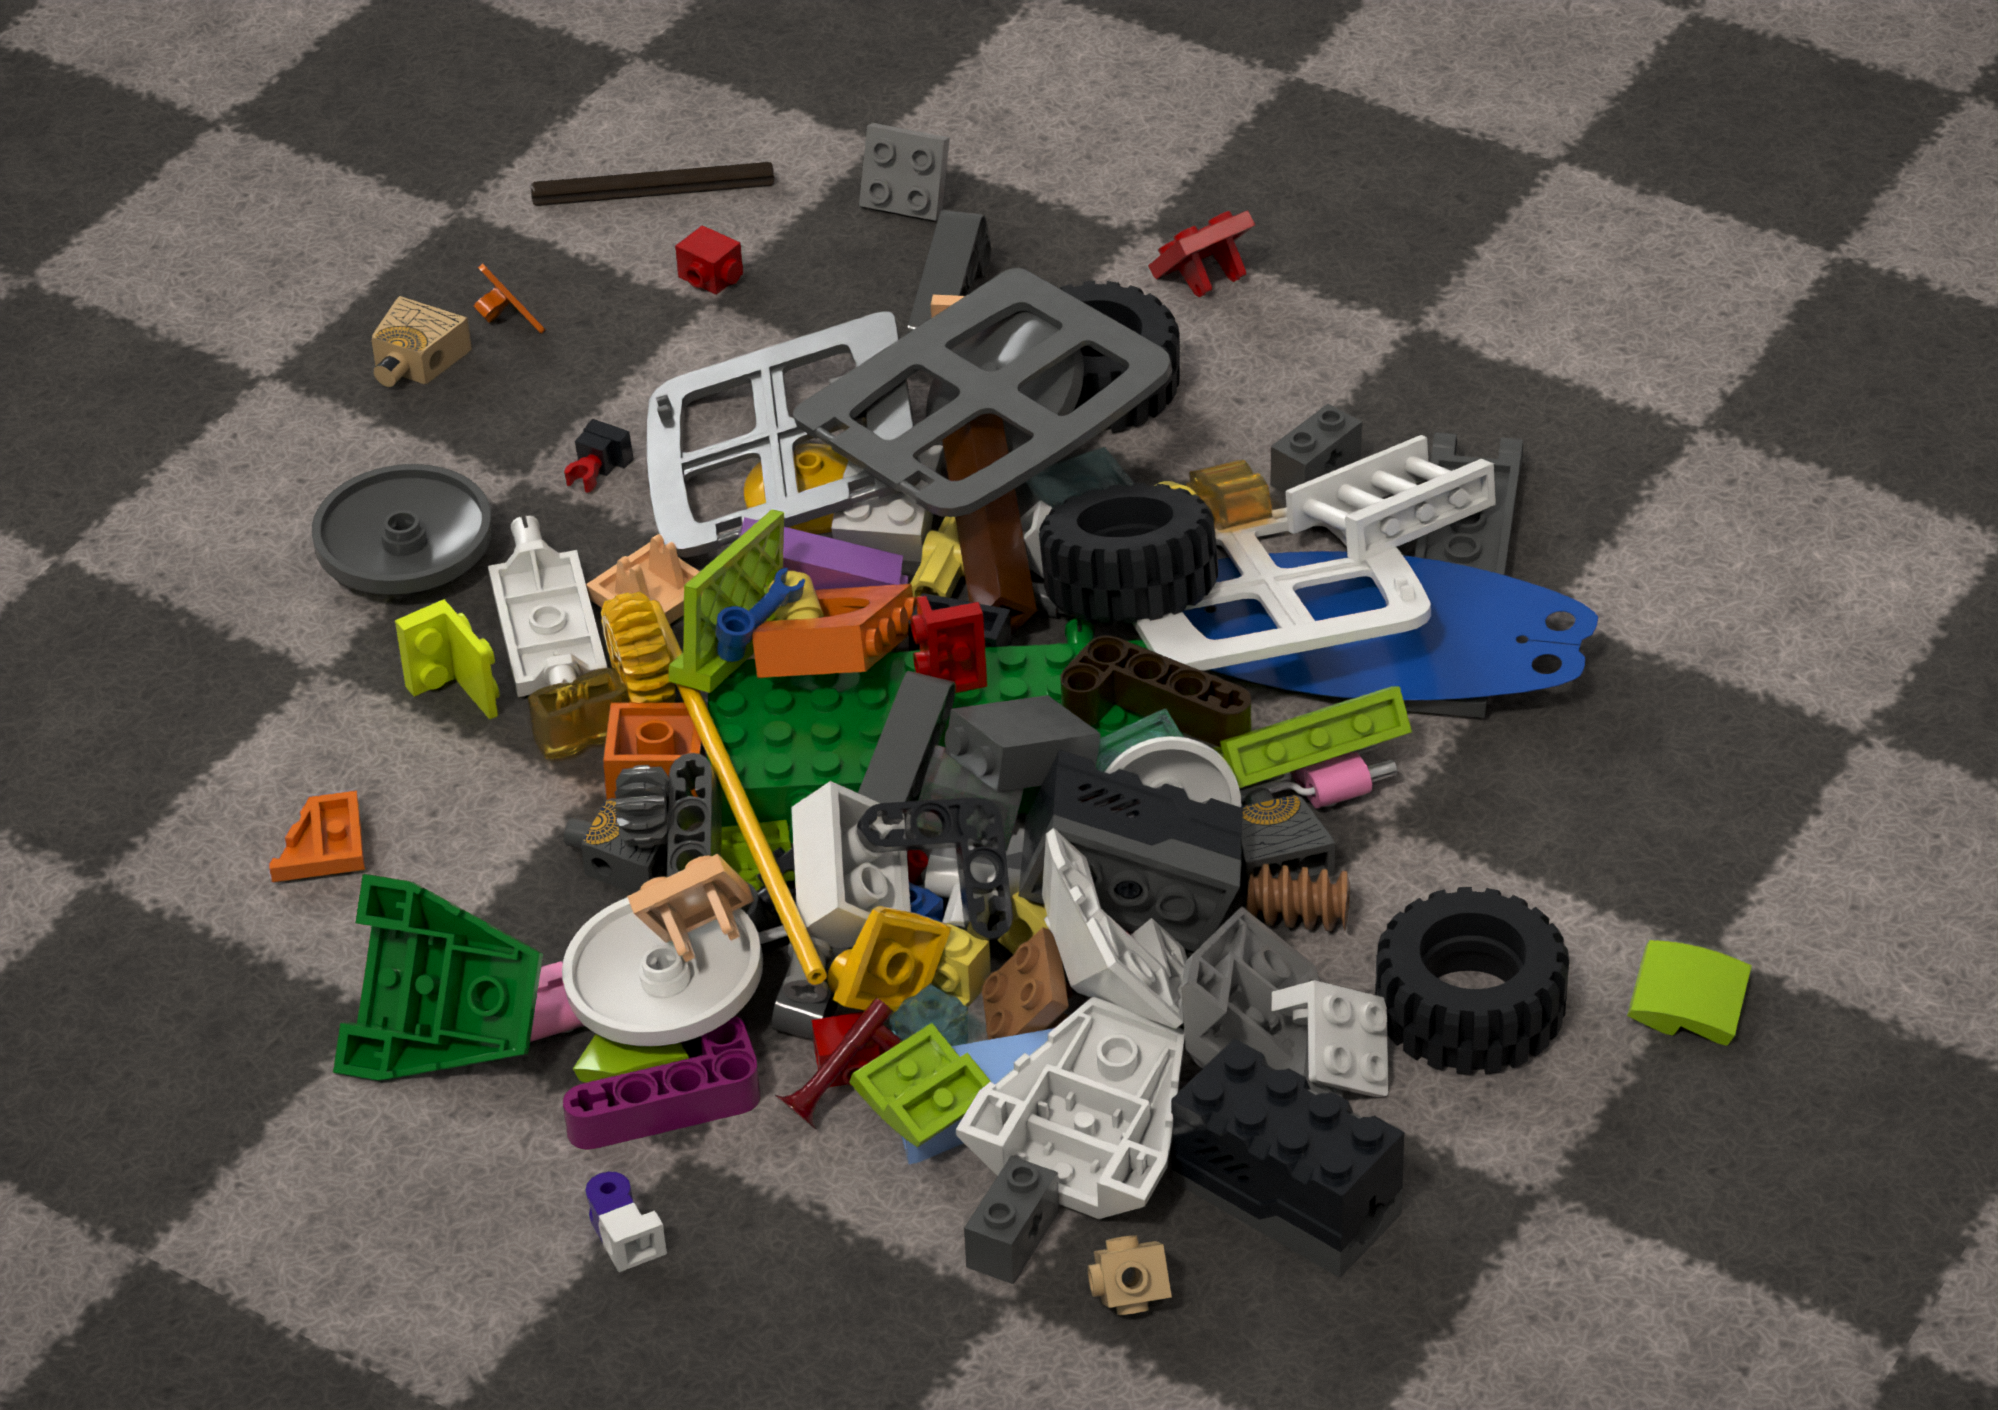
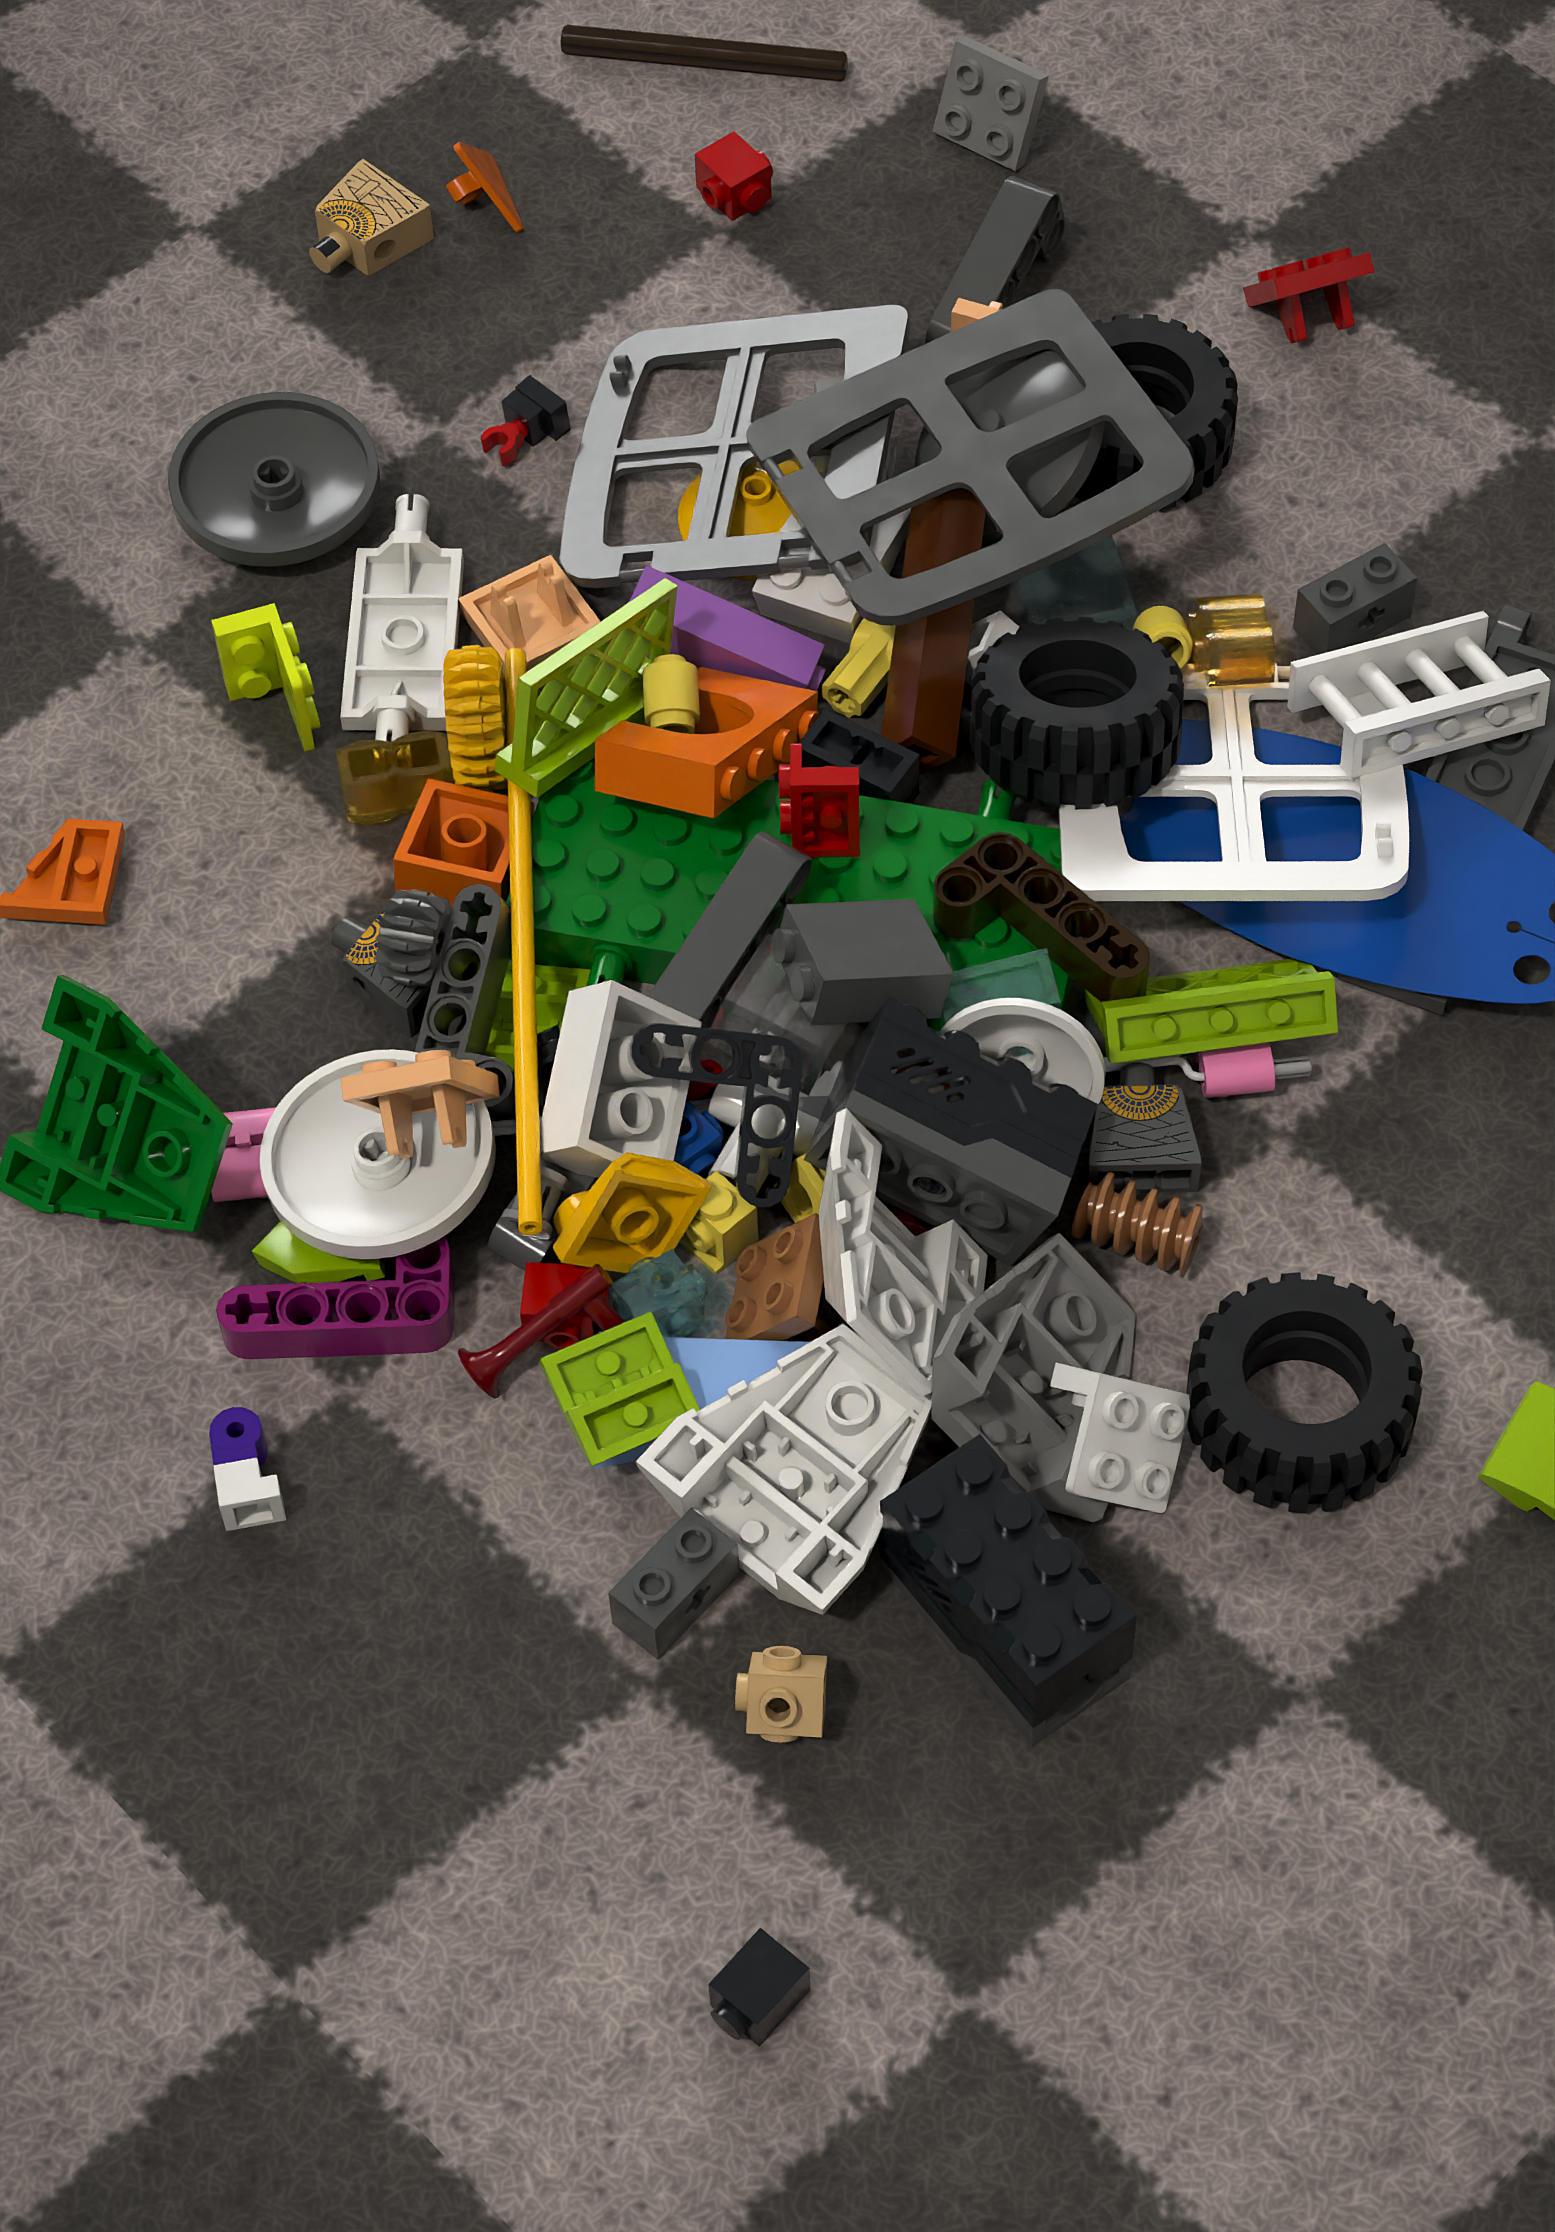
camera: 15 degrees right, 15 degrees up
(737, 624) = (580, 725): blue brick -> none

